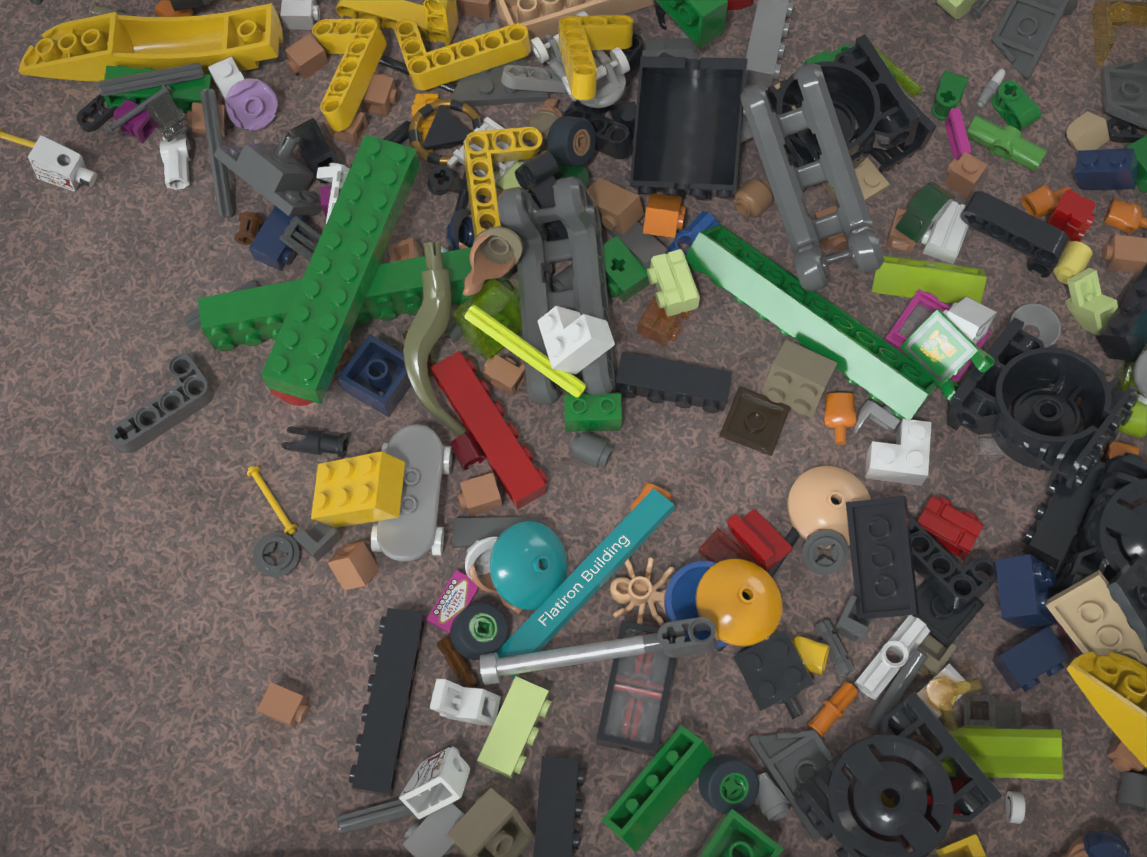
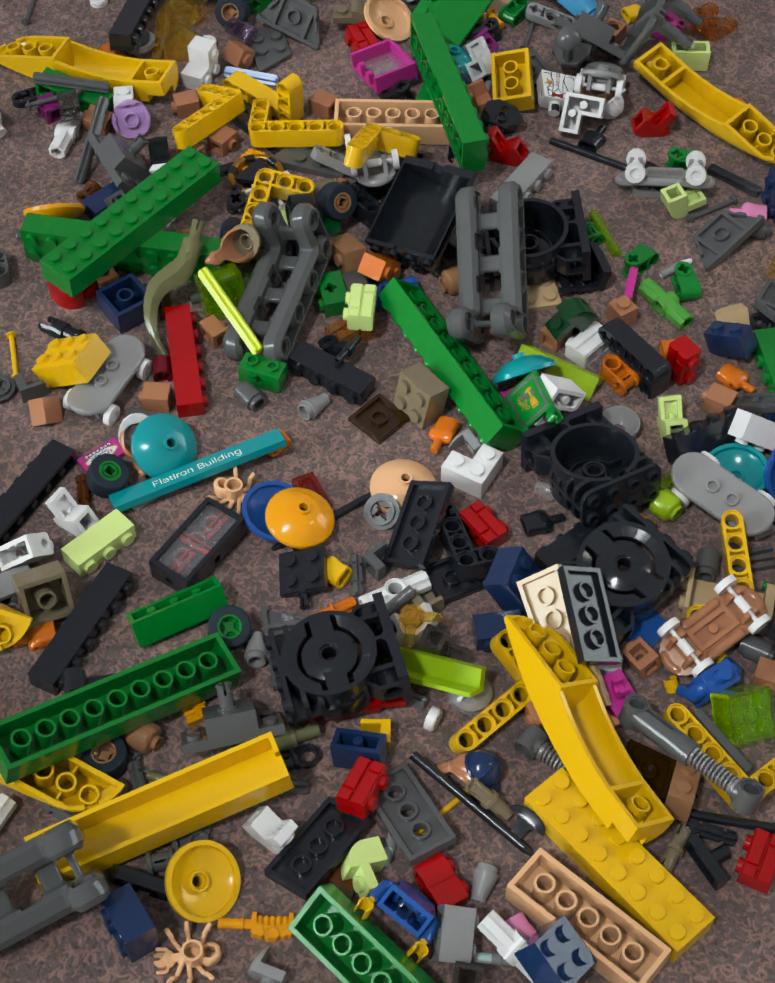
camera: 20 degrees right, 15 degrees down
(226, 280) = (65, 210): none -> light orange dish
(494, 667) = (237, 513): flat silver piece -> none
(574, 338) = (265, 310): white brick -> none
(668, 347) = (337, 348): none -> black piece
(672, 435) = (313, 406): none -> light grey cone
(759, 538) = (339, 489): red panel -> none
(903, 302) = (522, 366): none -> teal dish
(1000, 260) = (618, 374): none -> orange piece
(1004, 493) = (539, 522): none -> black piece
(1072, 261) = (678, 386): light yellow brick -> none
(1084, 763) = (505, 701): none -> yellow beam

